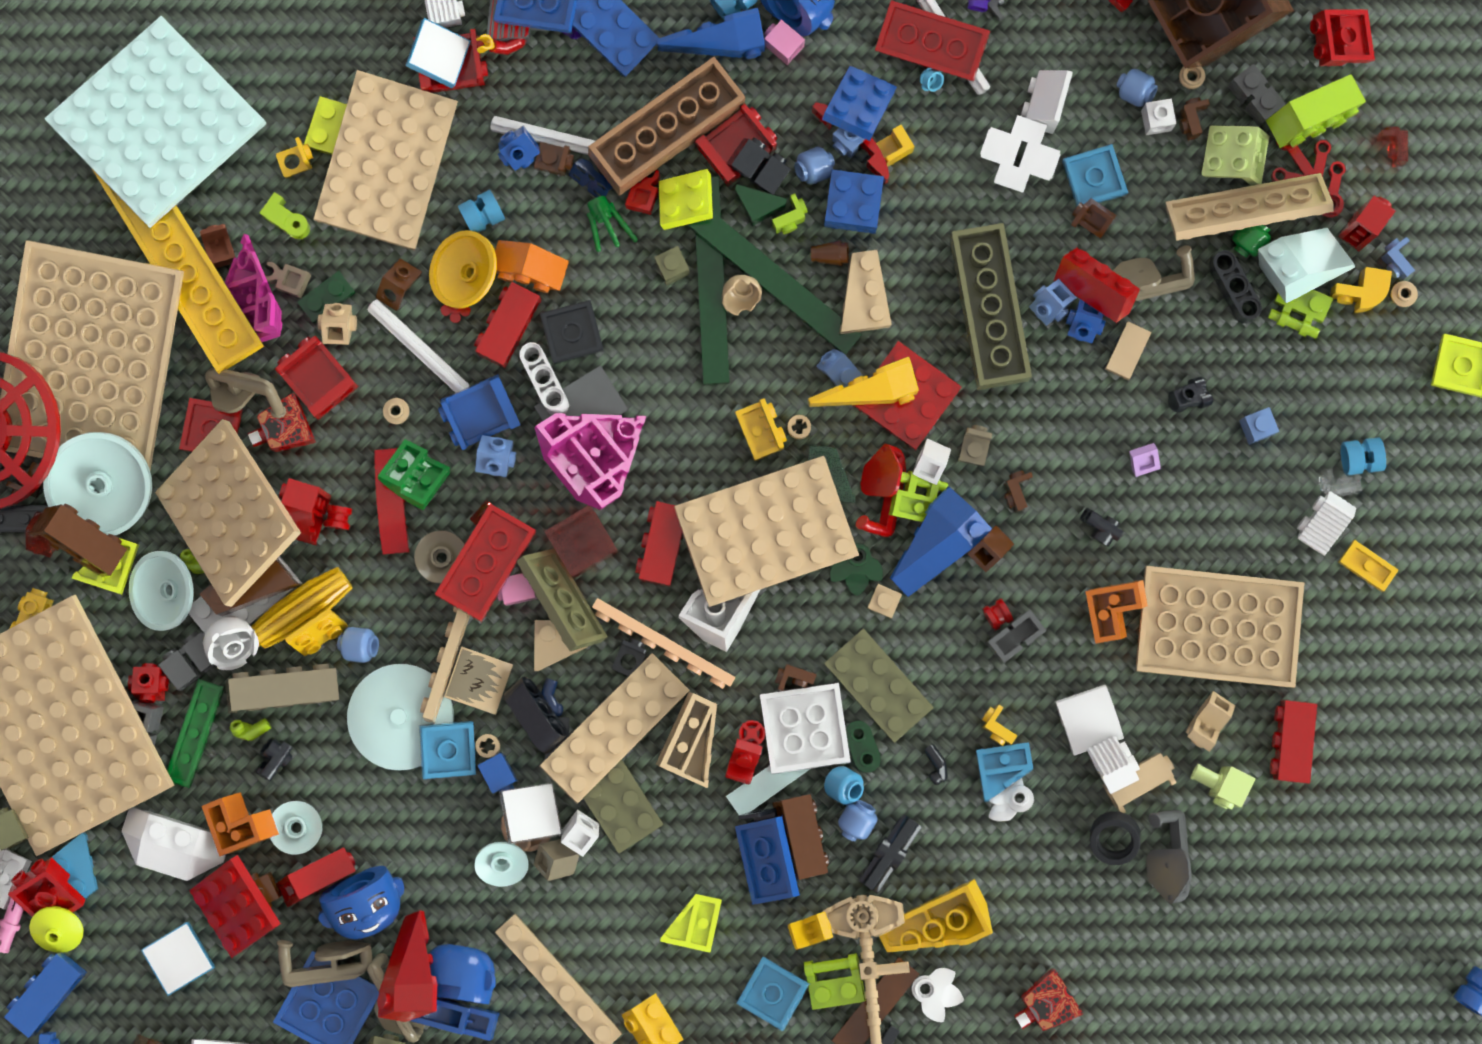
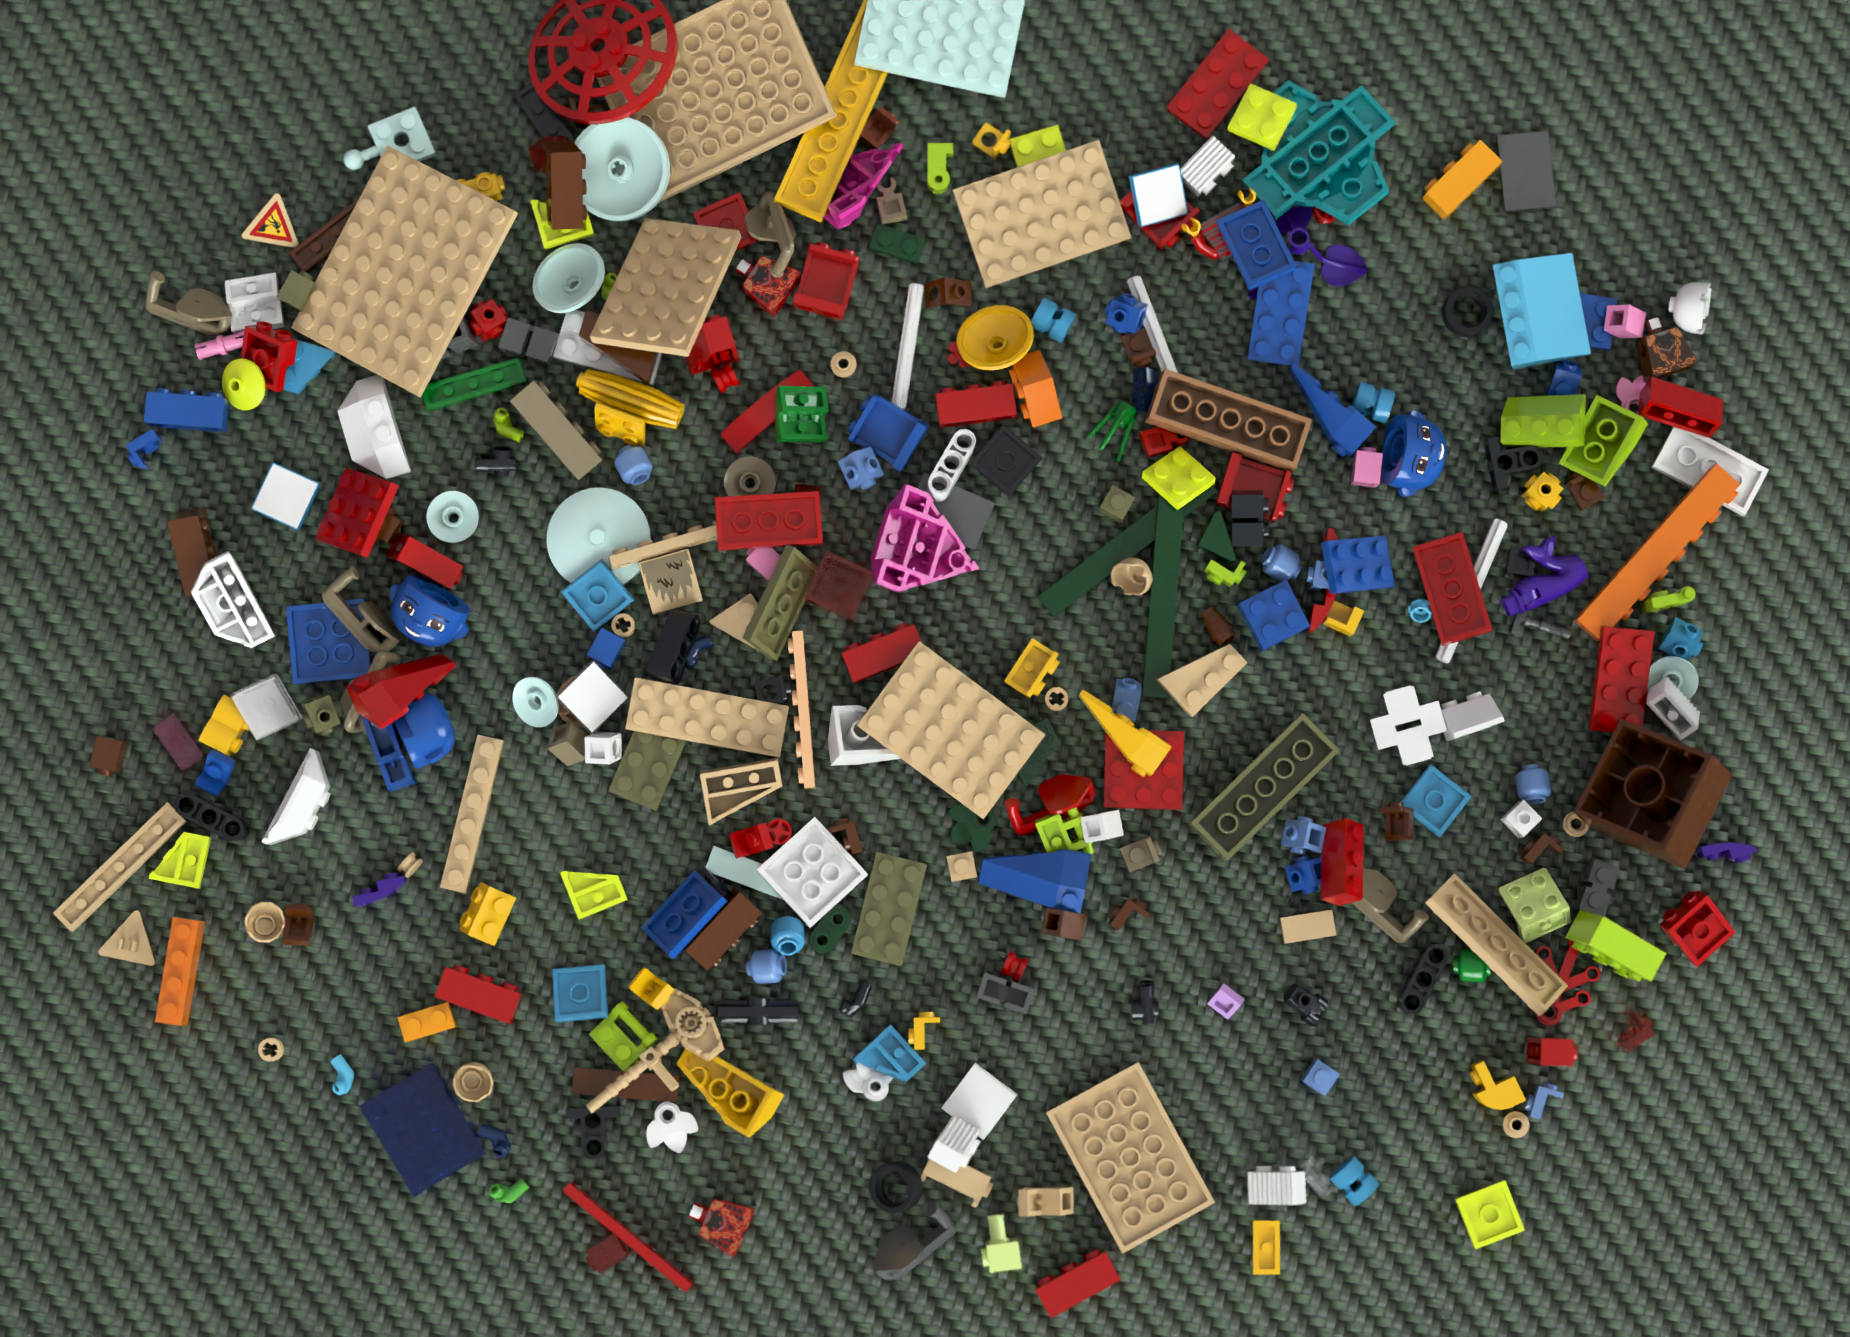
camera: 55 degrees right, 0 degrees up
(230, 643) = (563, 361): white cylinder -> none
(233, 827) = (419, 468): orange brick -> none
(337, 323) = (880, 267): tan brick -> none
(1107, 607) = (1080, 1053): orange brick -> none
(1303, 262) = (1483, 1021): light aqua slope -> none
(1311, 305) = (1450, 1043): lime plate -> none

